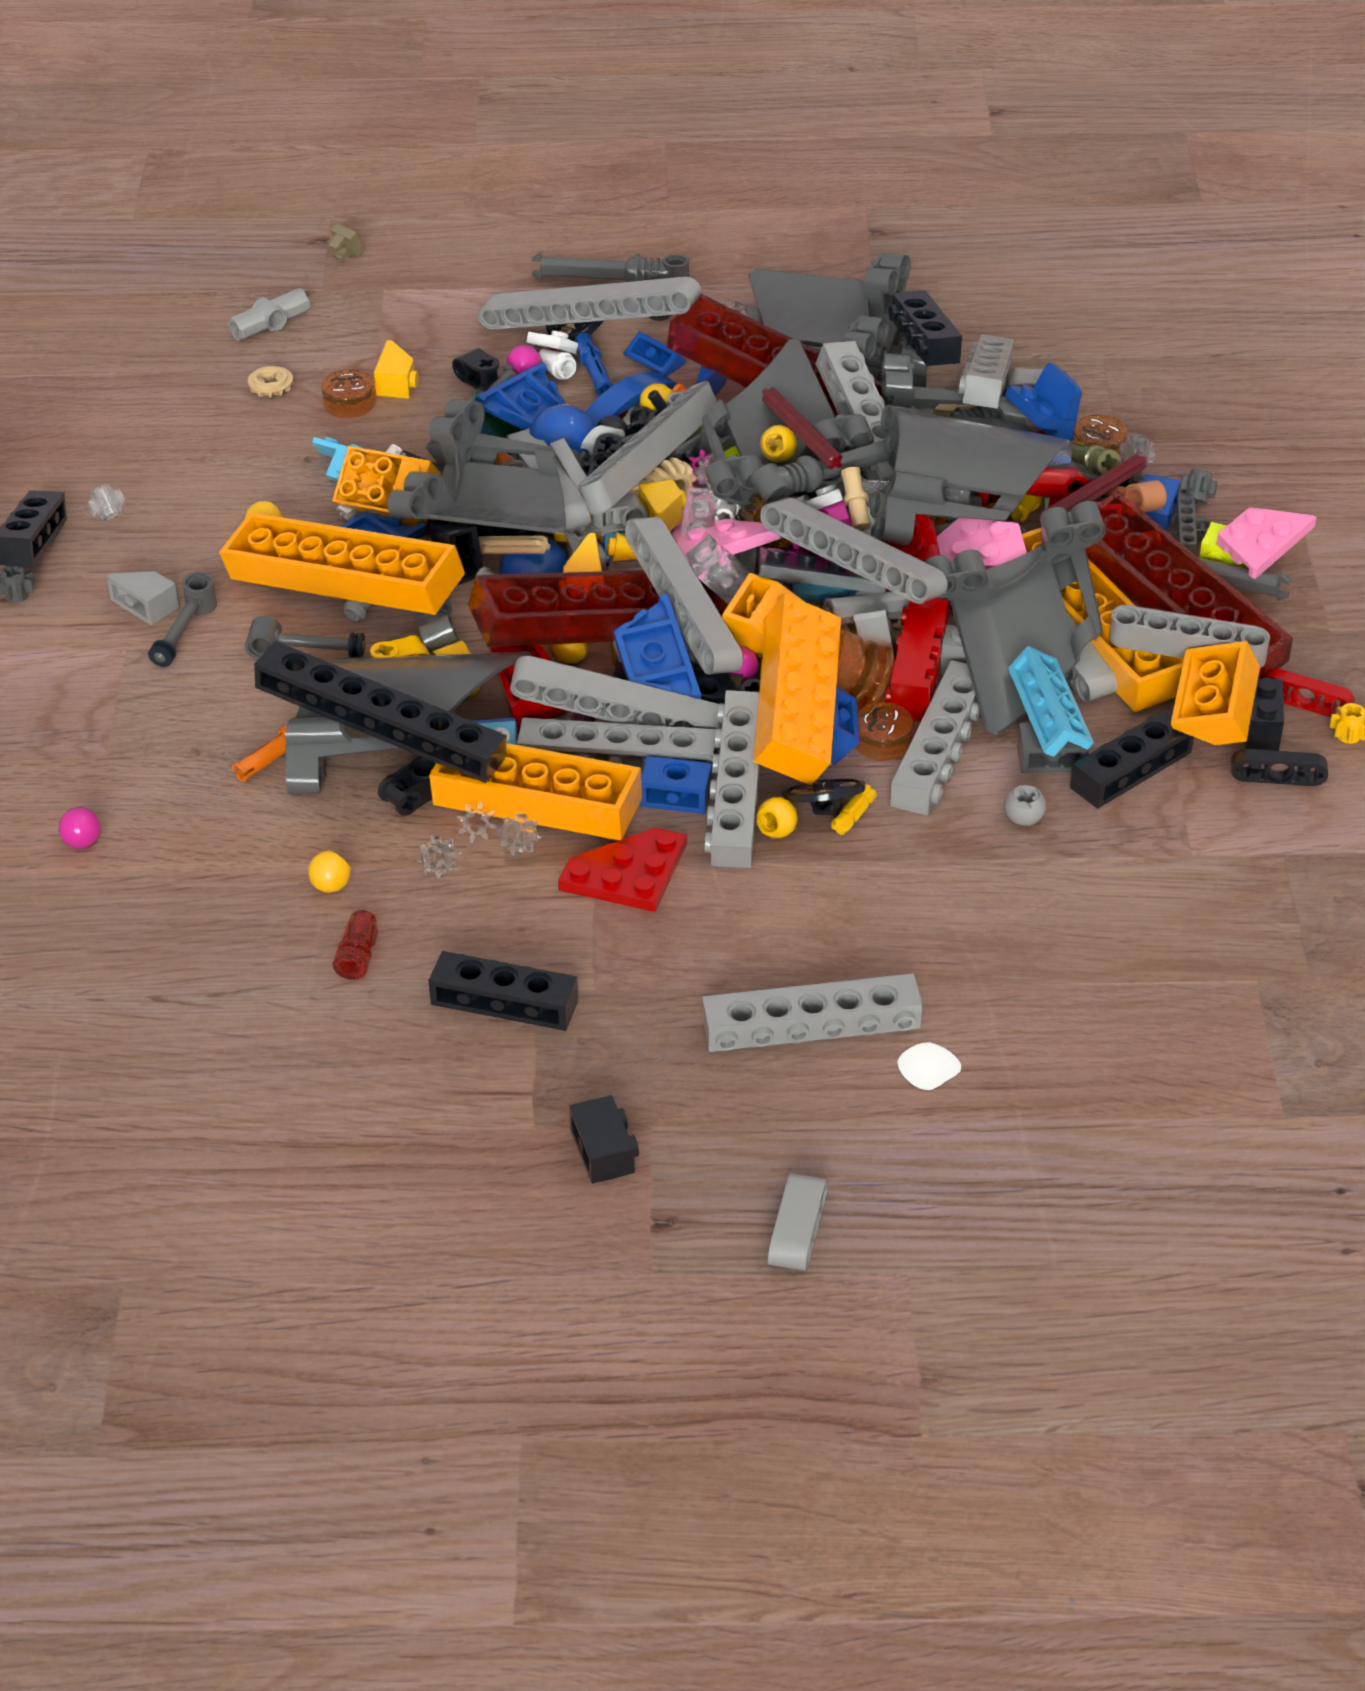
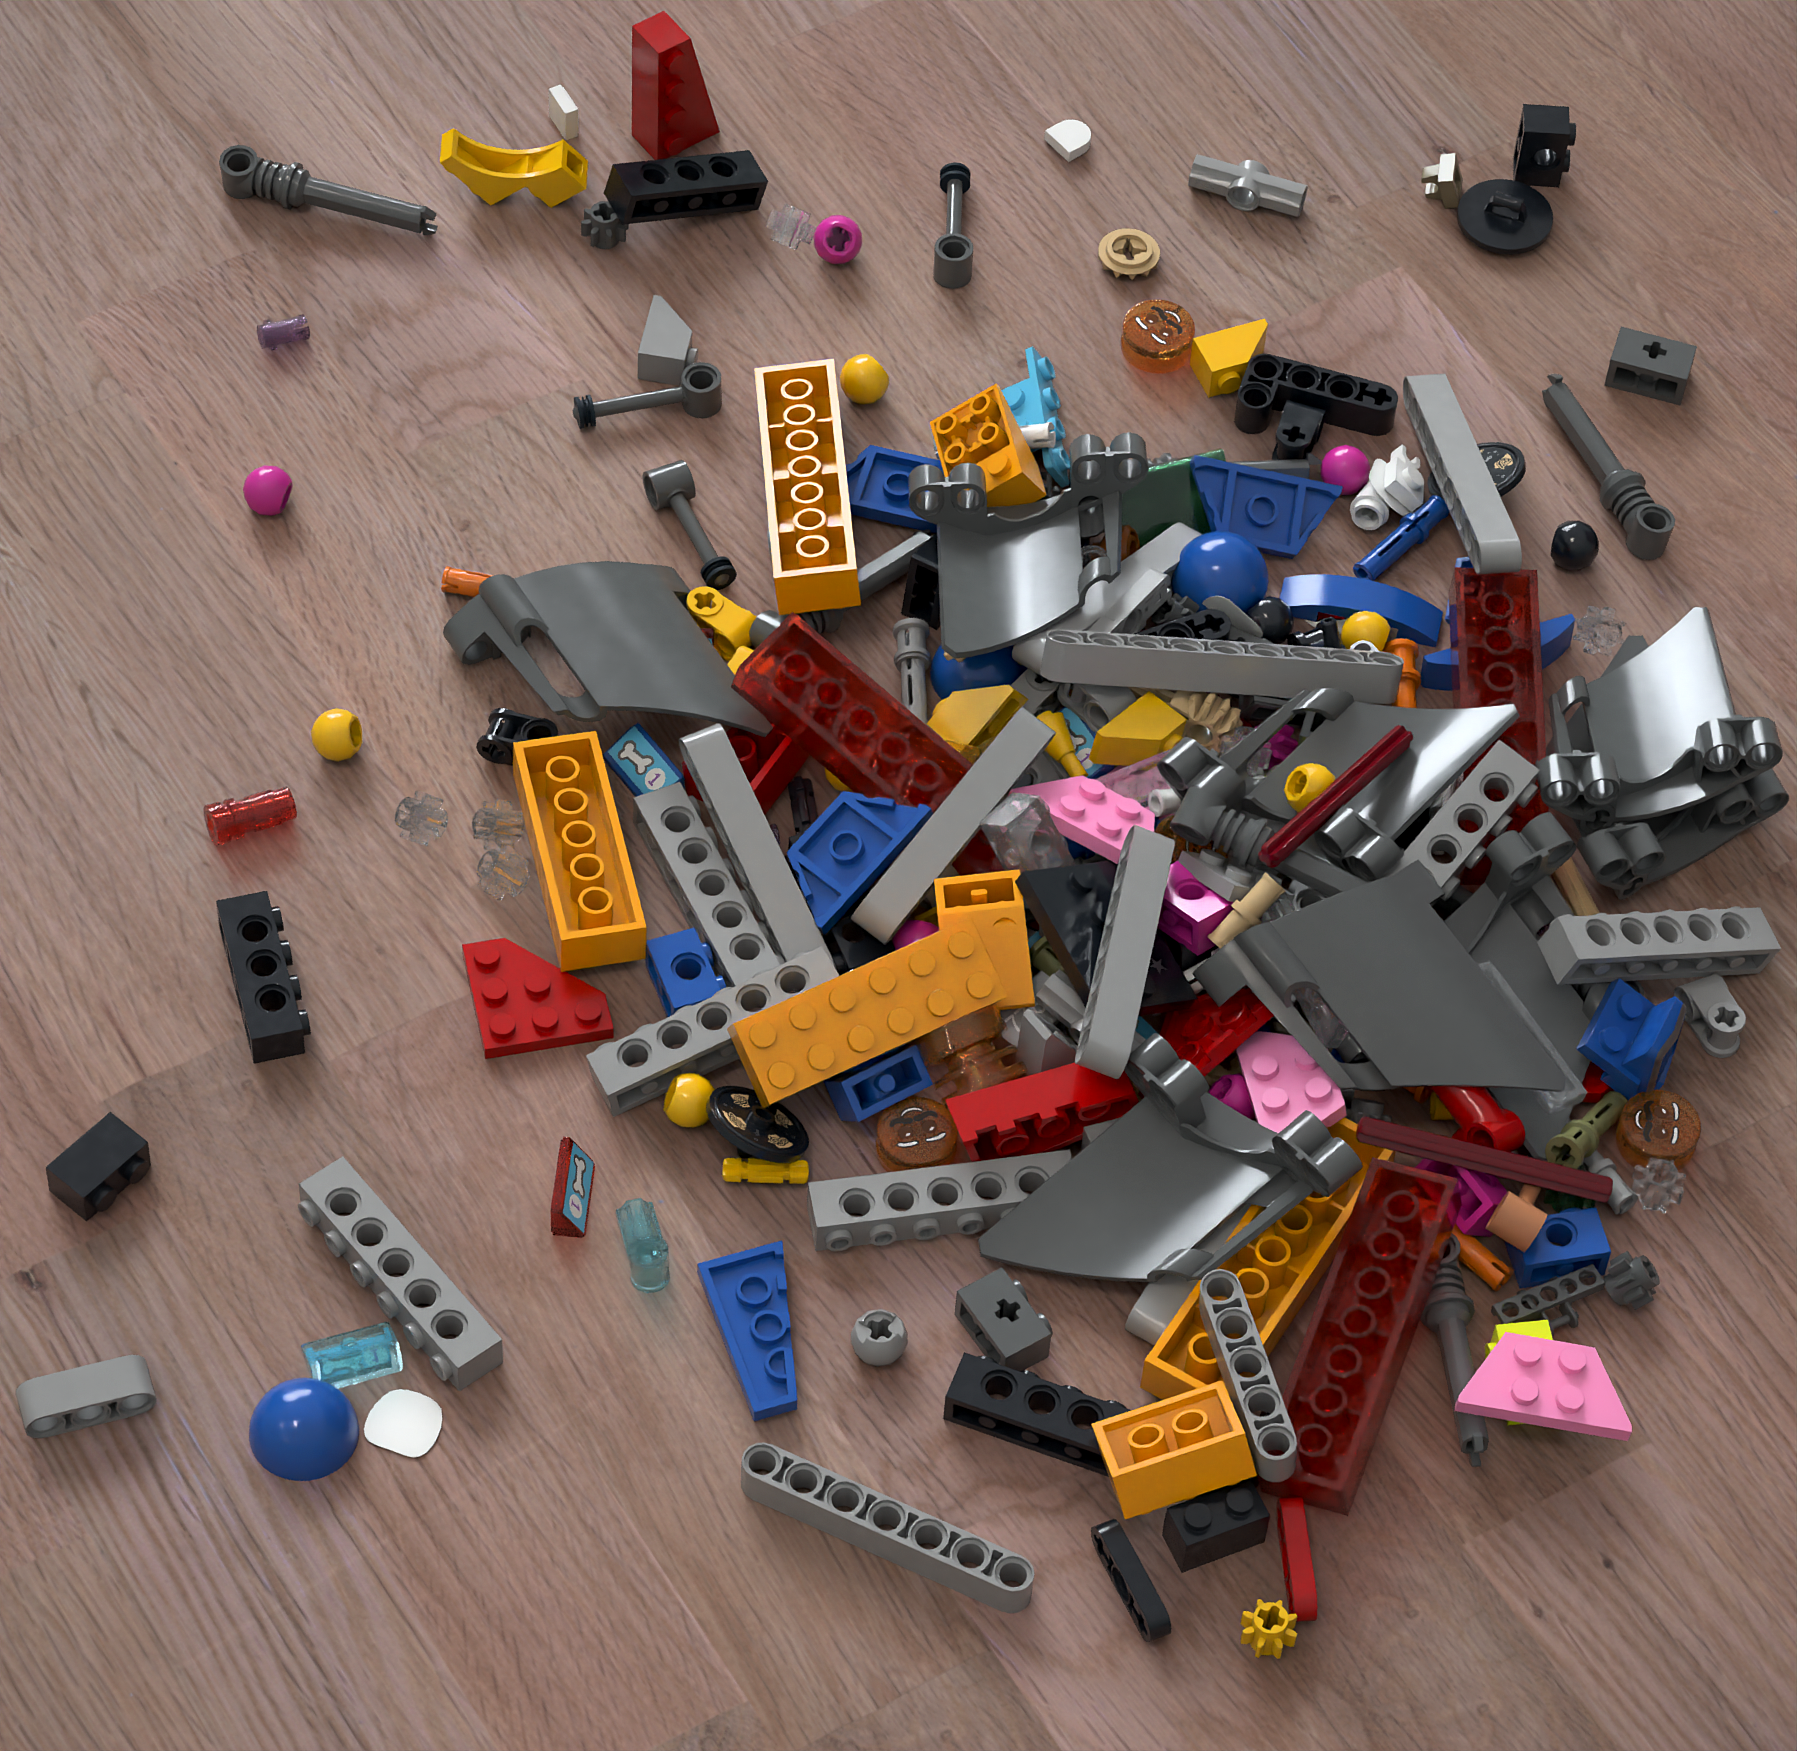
camera: 55 degrees right, 10 degrees up
(138, 487) = (837, 239): none -> dark pink piece
(153, 369) = (1069, 138): none -> white tile
(201, 443) = (953, 251): none -> dark grey piece
(363, 193) = (1542, 145): none -> black brick
(380, 711) = (550, 772): black brick -> none
(391, 235) = (1505, 216): none -> black shield
(435, 358) = (1348, 399): none -> black beam
(556, 226) = (1650, 365): none -> dark grey brick
(801, 907) = (571, 1190): none -> slope
(857, 1068) = (354, 1355): none -> clear light blue slope
(886, 885) = (643, 1245): none -> clear light blue piece
(900, 1117) = (303, 1429): none -> blue piece
(926, 328) = (1647, 833): black brick -> none
(980, 861) = (753, 1318): none -> blue wing
(1048, 701) = (1036, 1267): medium azure fence -> none
(1172, 858) = (896, 1545): none -> light grey beam

